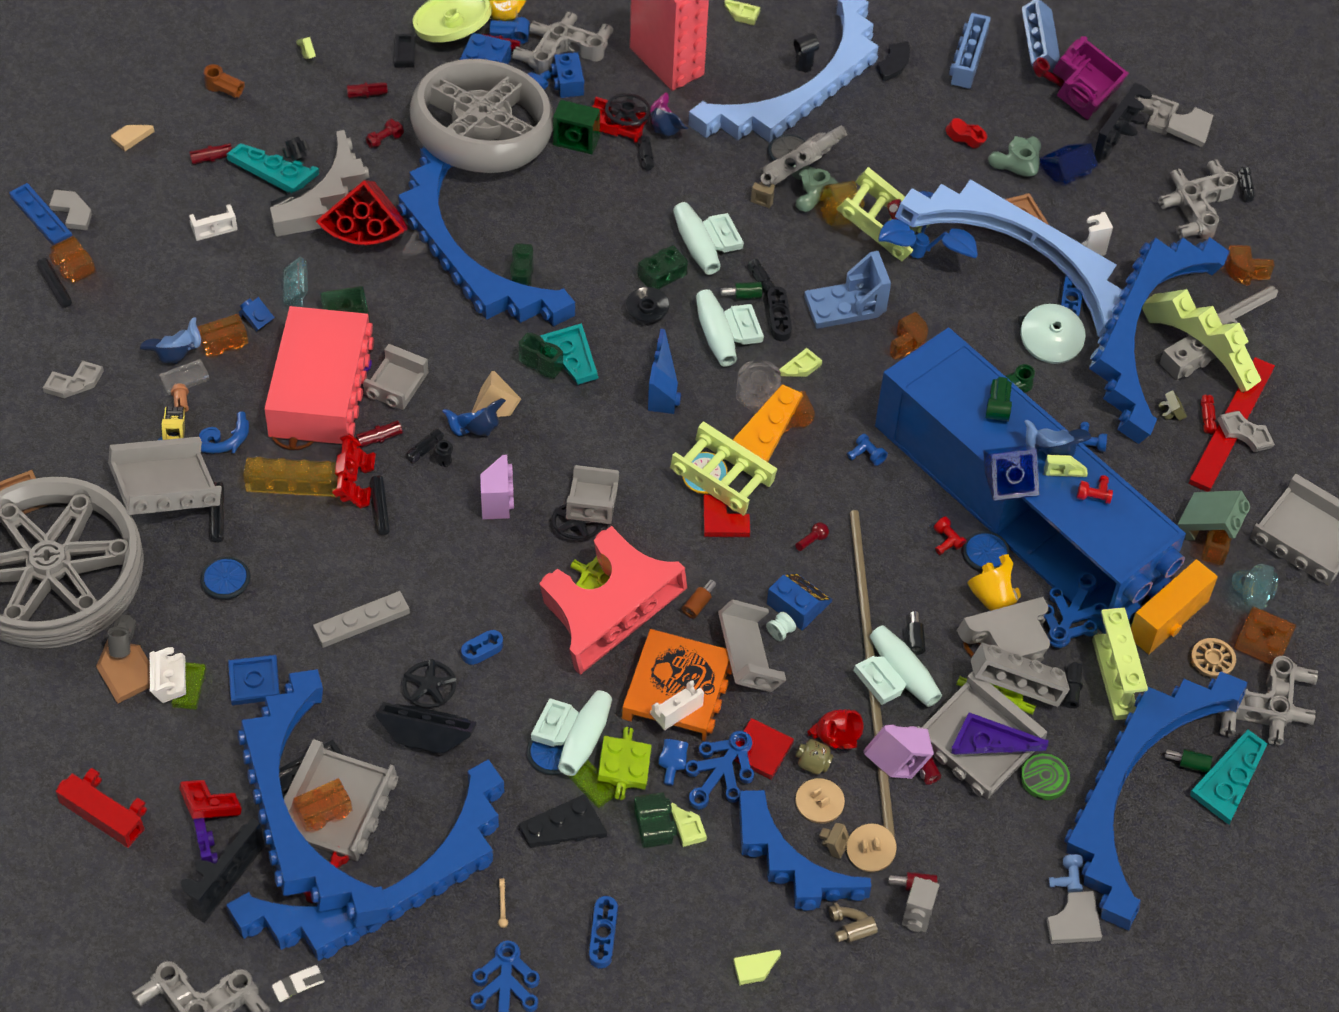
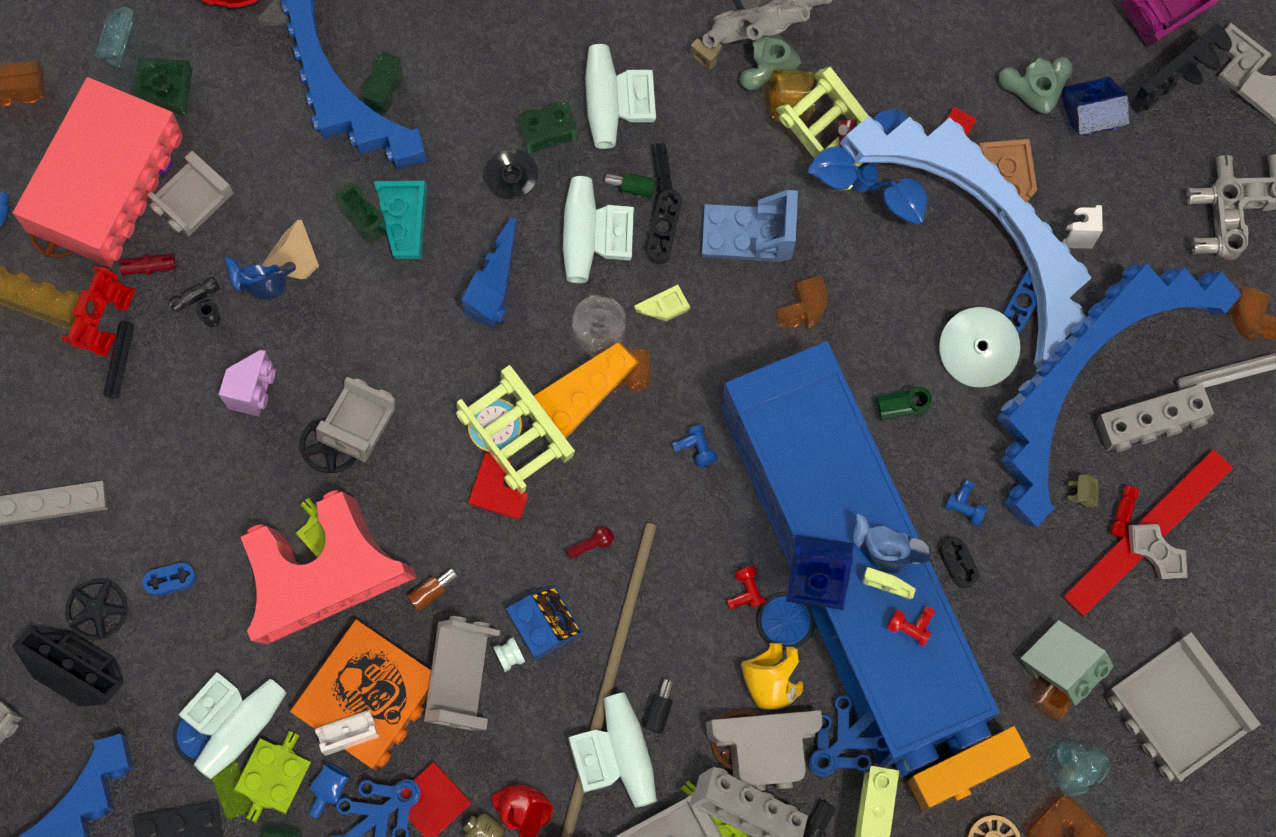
camera: 20 degrees right, 20 degrees up
(256, 313) = (61, 62): blue bracket -> none
(962, 132) = (986, 29): red piece -> none
(999, 402) = (842, 472): dark green piece -> none
(1203, 323) = (1160, 402): yellowish green arch -> none

